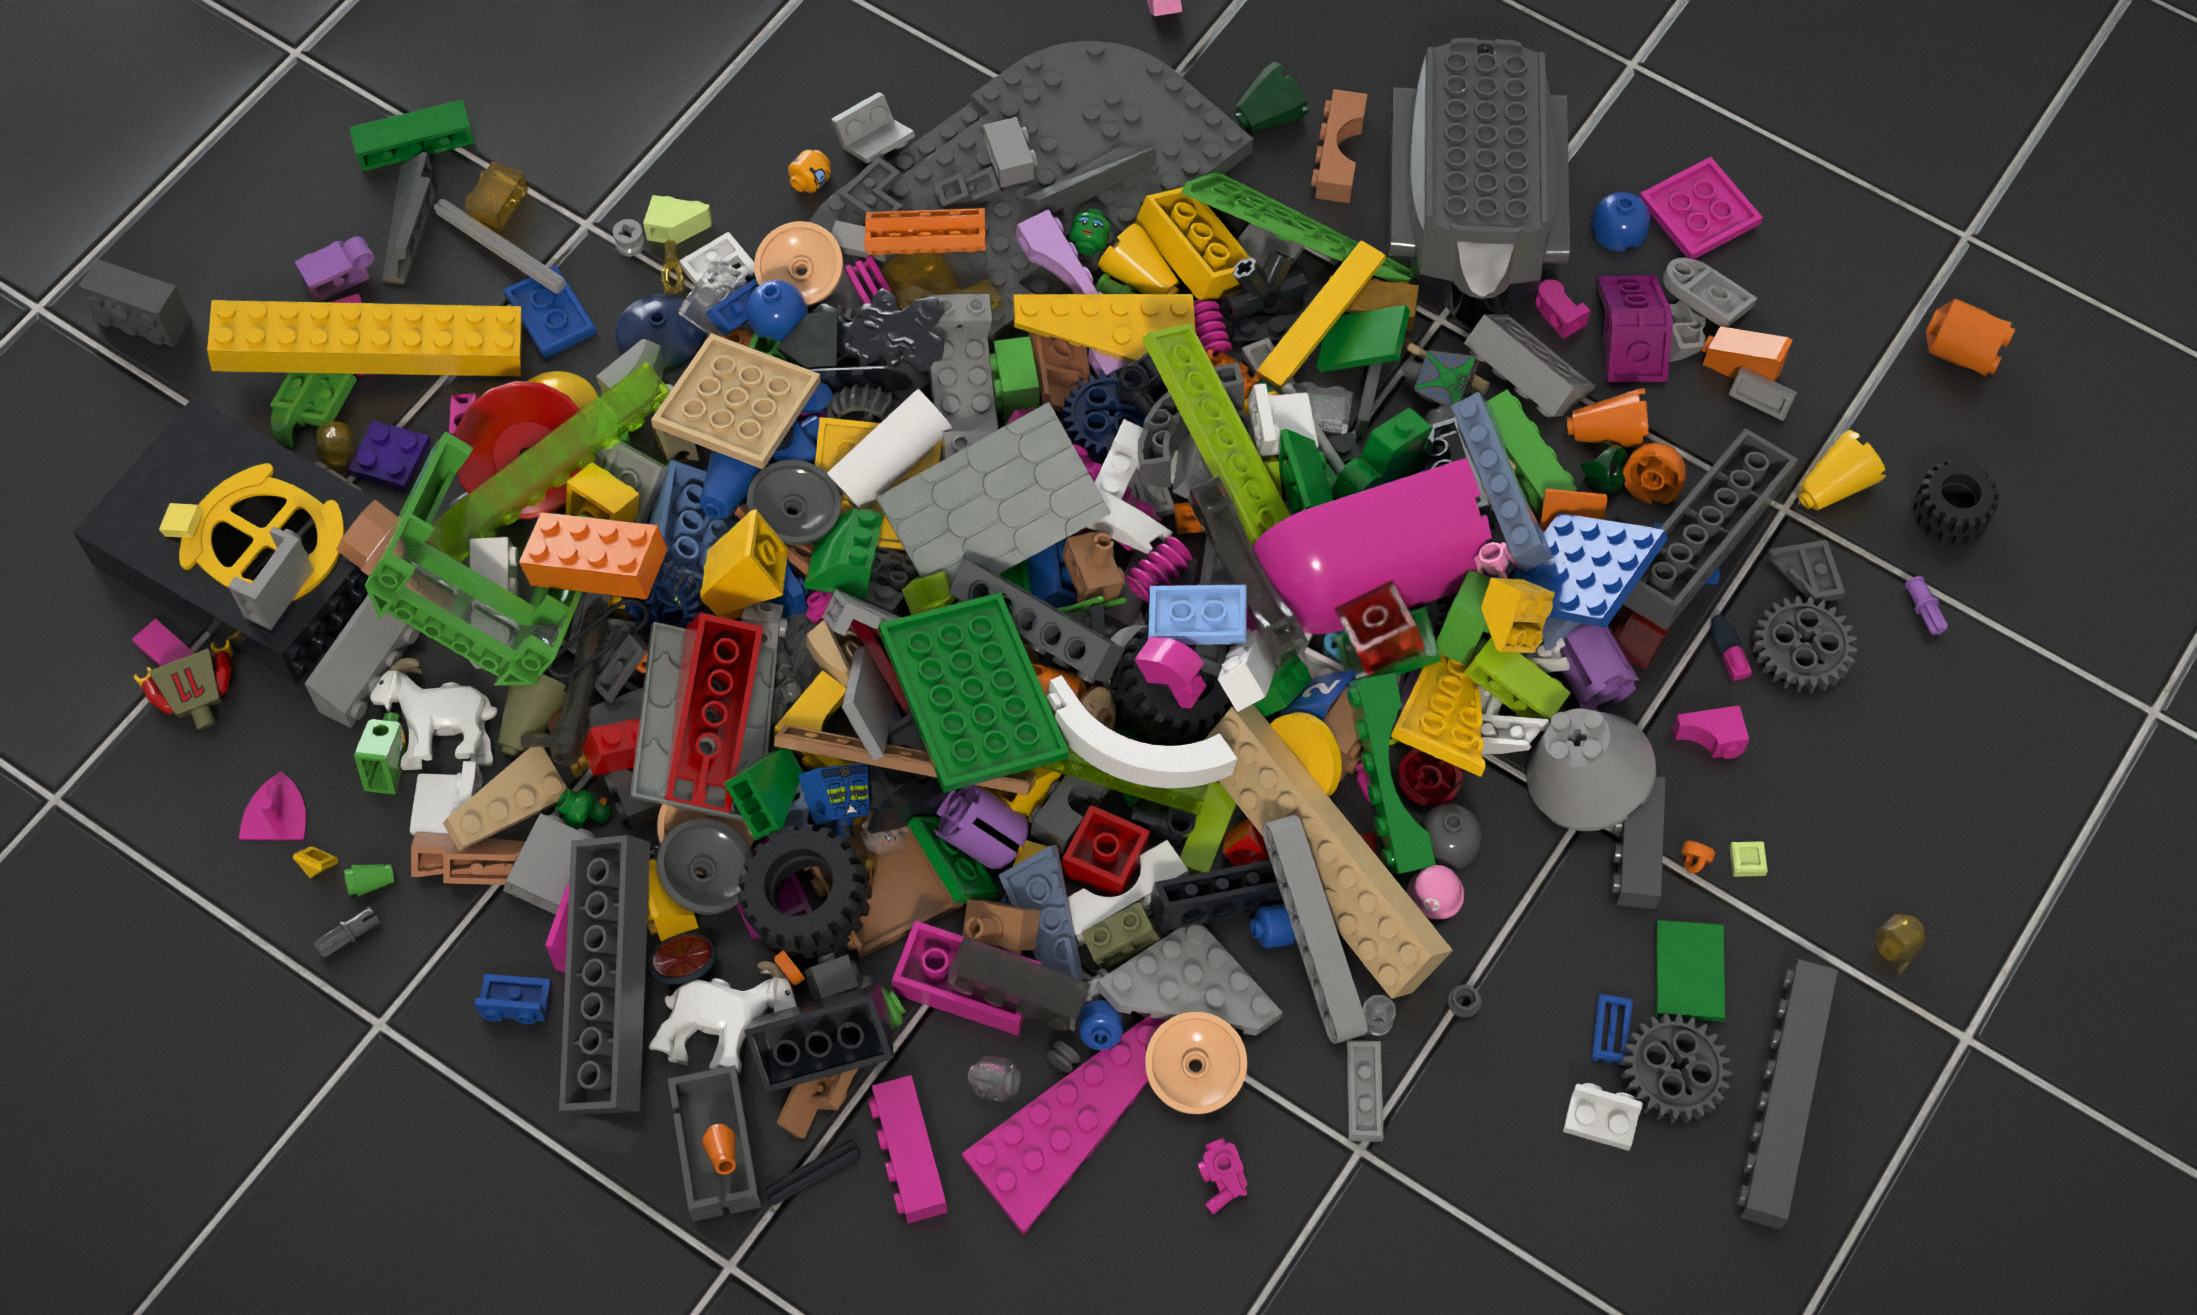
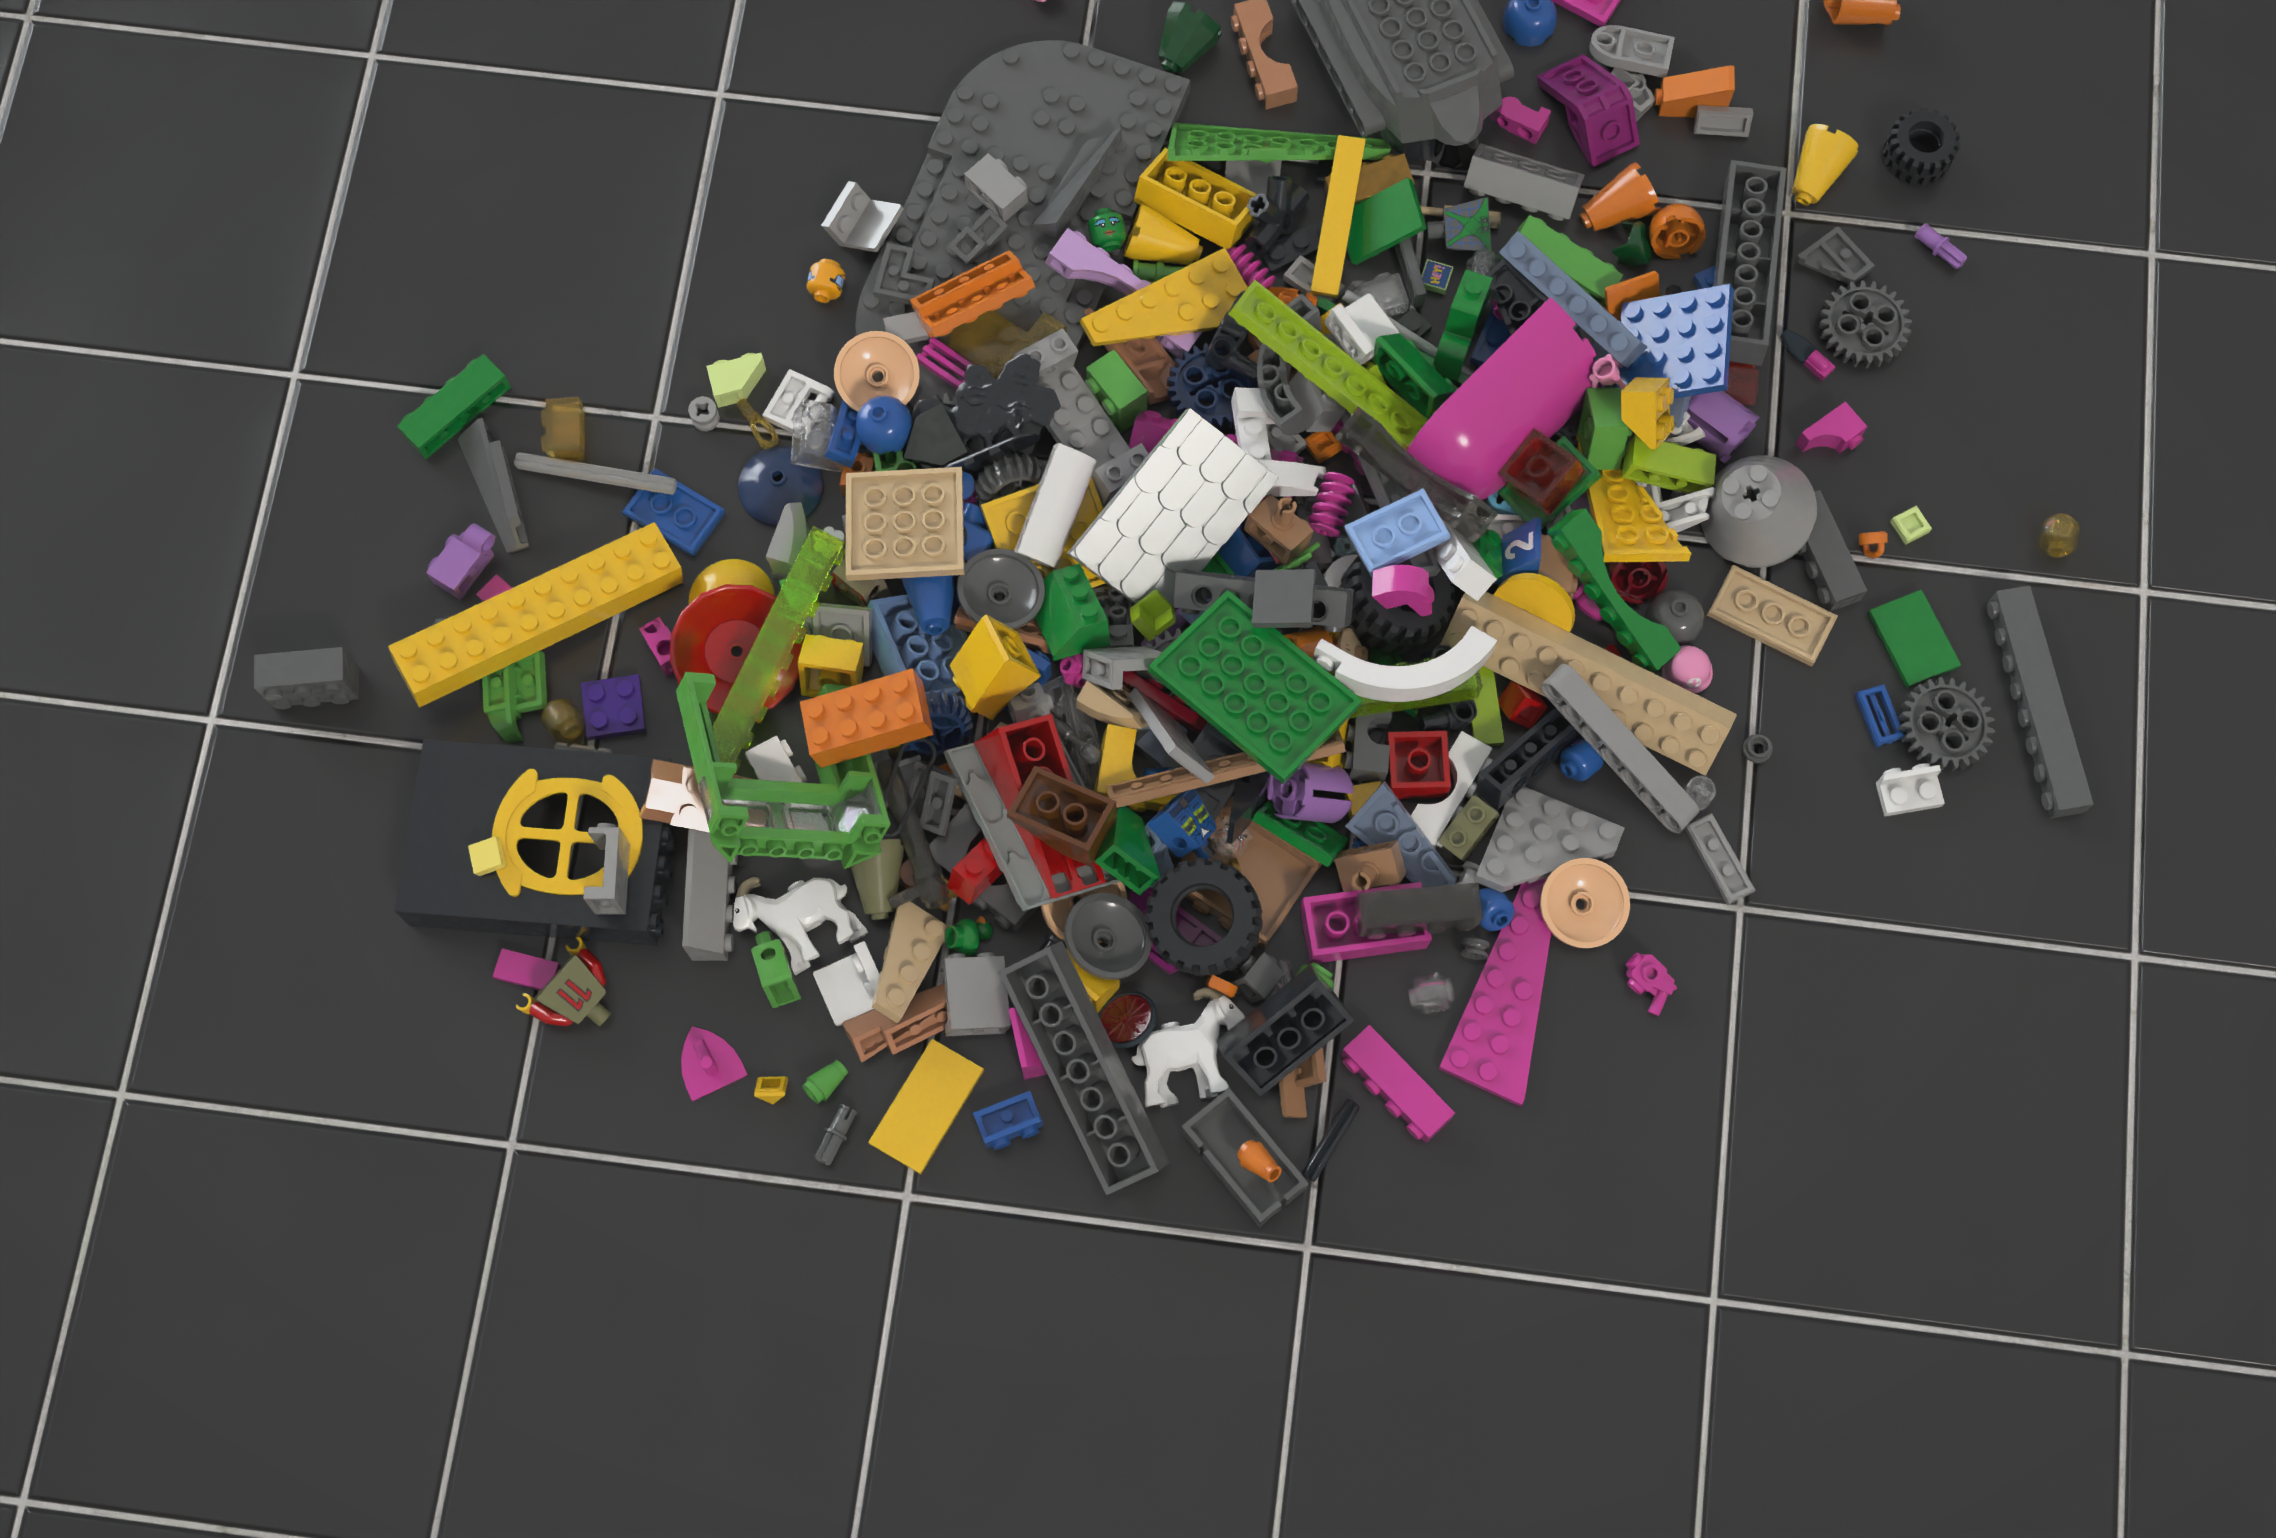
camera: 25 degrees left, 10 degrees up
(447, 948) = (926, 1106): none -> yellow tile
(718, 724) = (1064, 814): none -> reddish brown slope
(1046, 622) = (1283, 598): none -> dark grey tile
(1388, 410) = (1436, 276): none -> tile
(1553, 880) = (1772, 615): none -> tan tile

